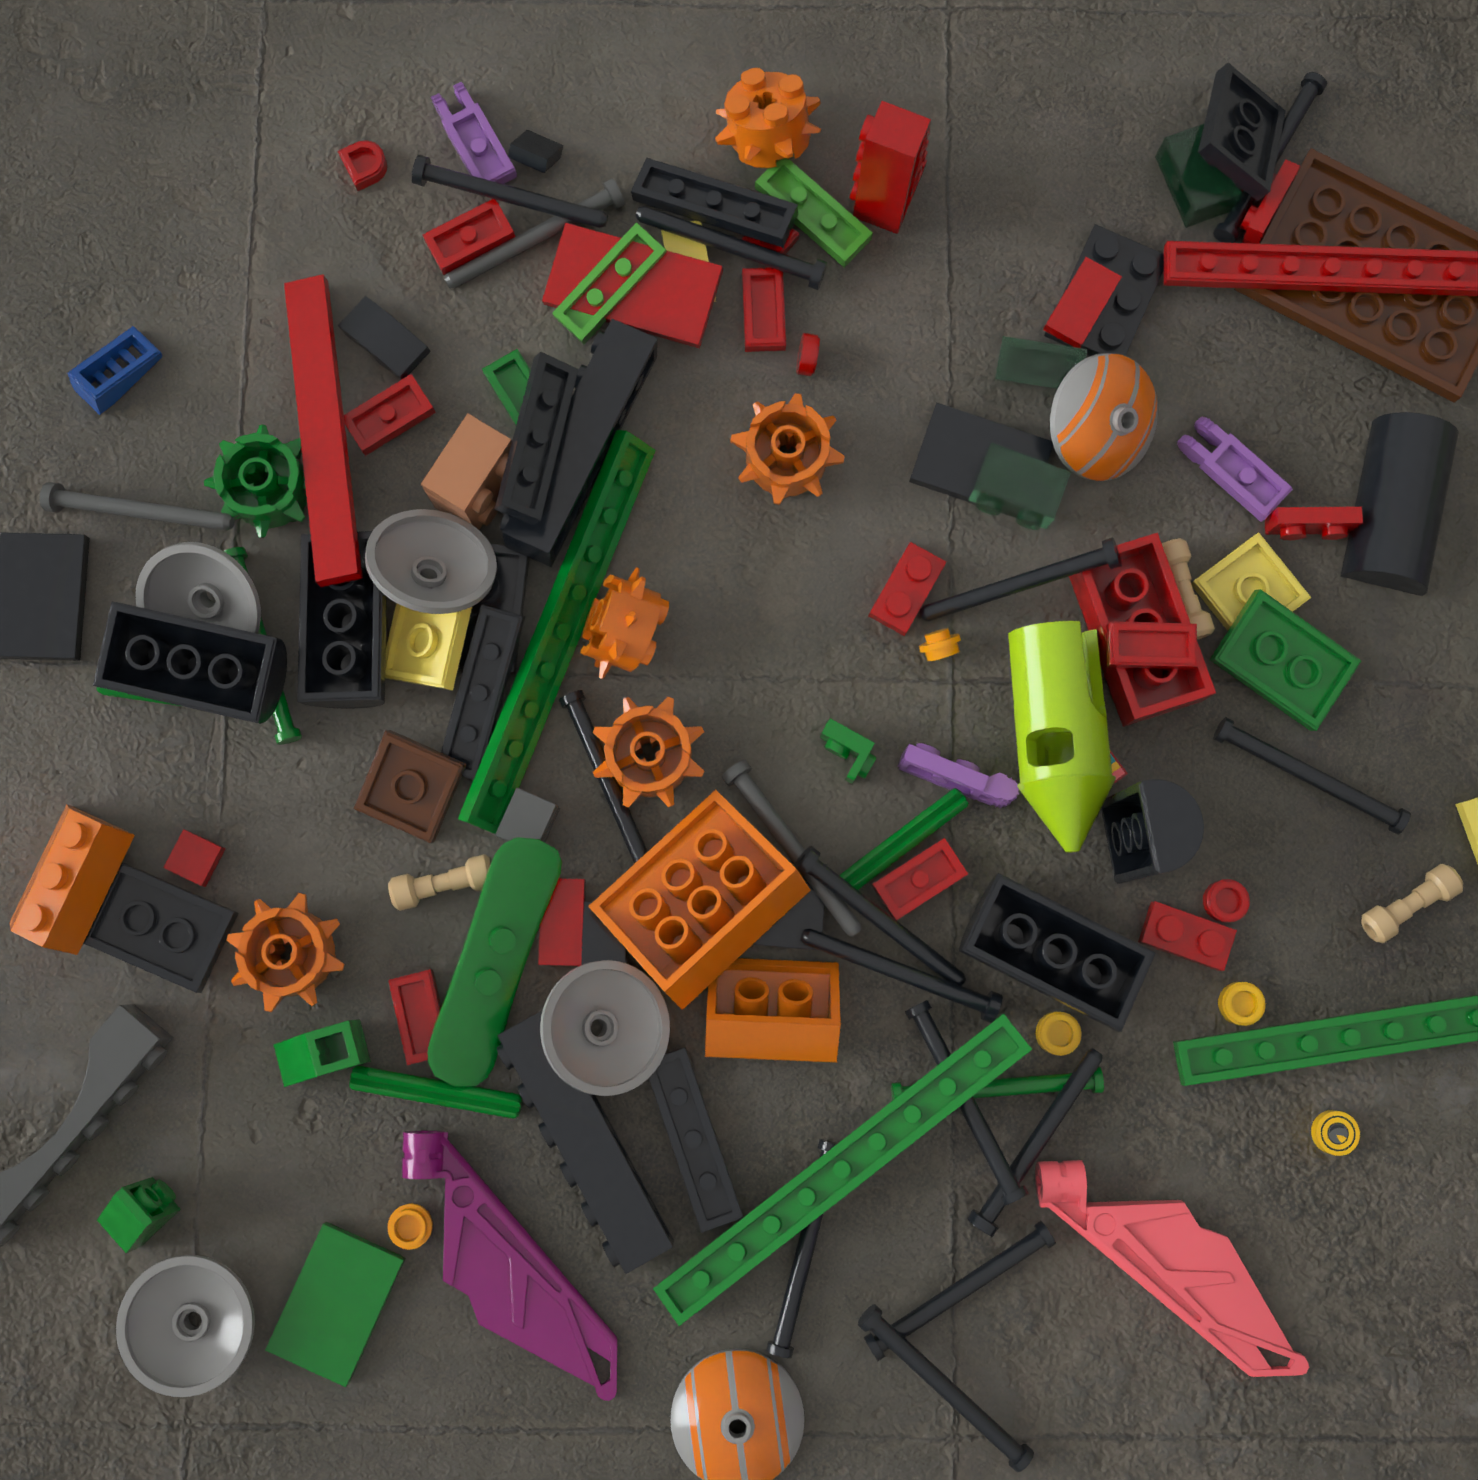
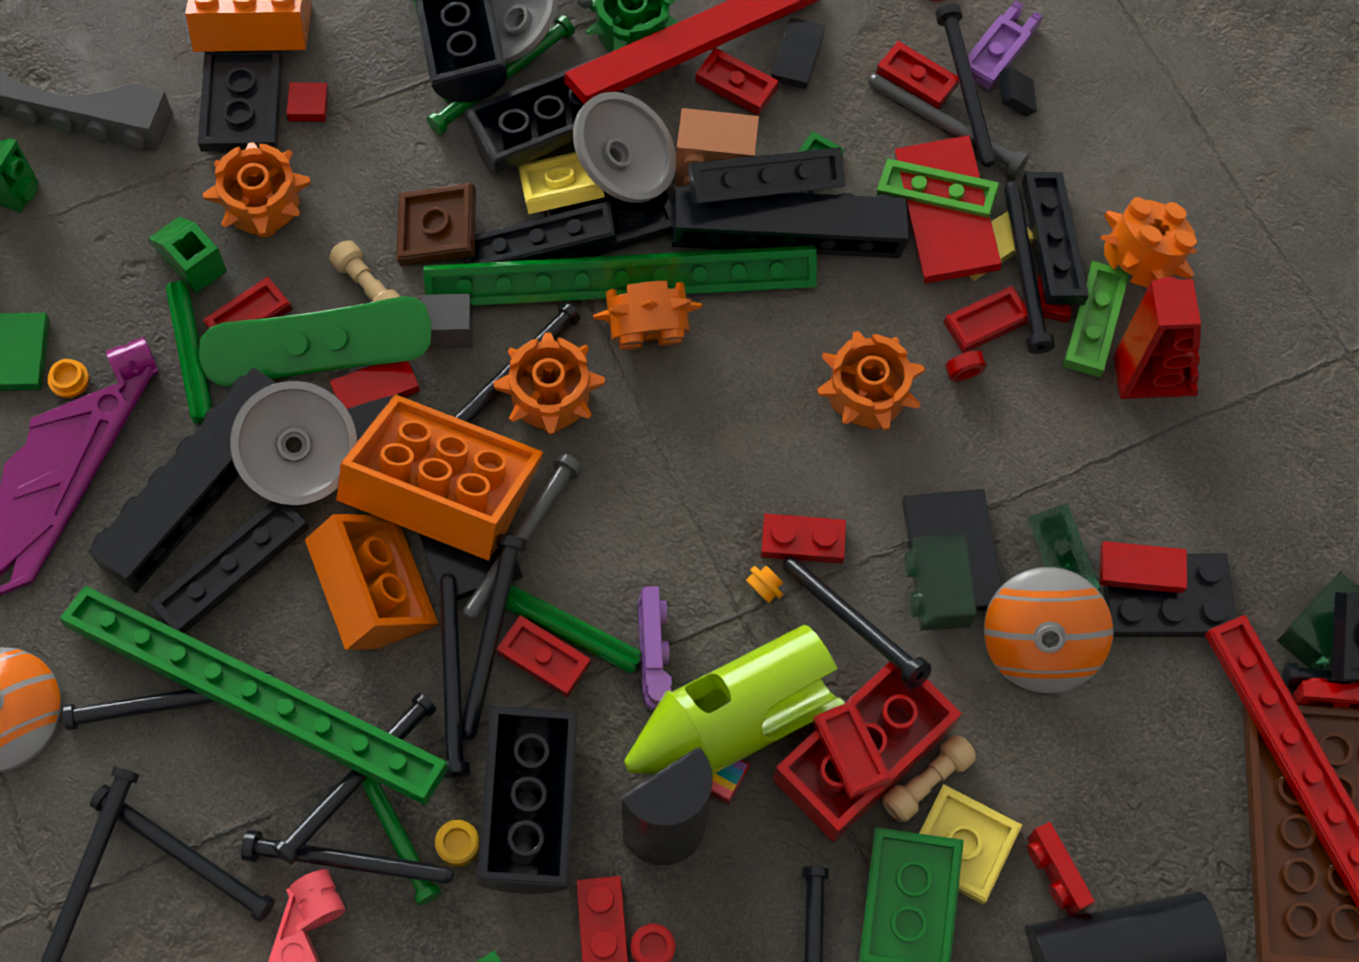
camera: 65 degrees right, 15 degrees down
(844, 742) = (634, 550): green bracket -> none
(1236, 469) = (1070, 780): medium lavender hinge -> none

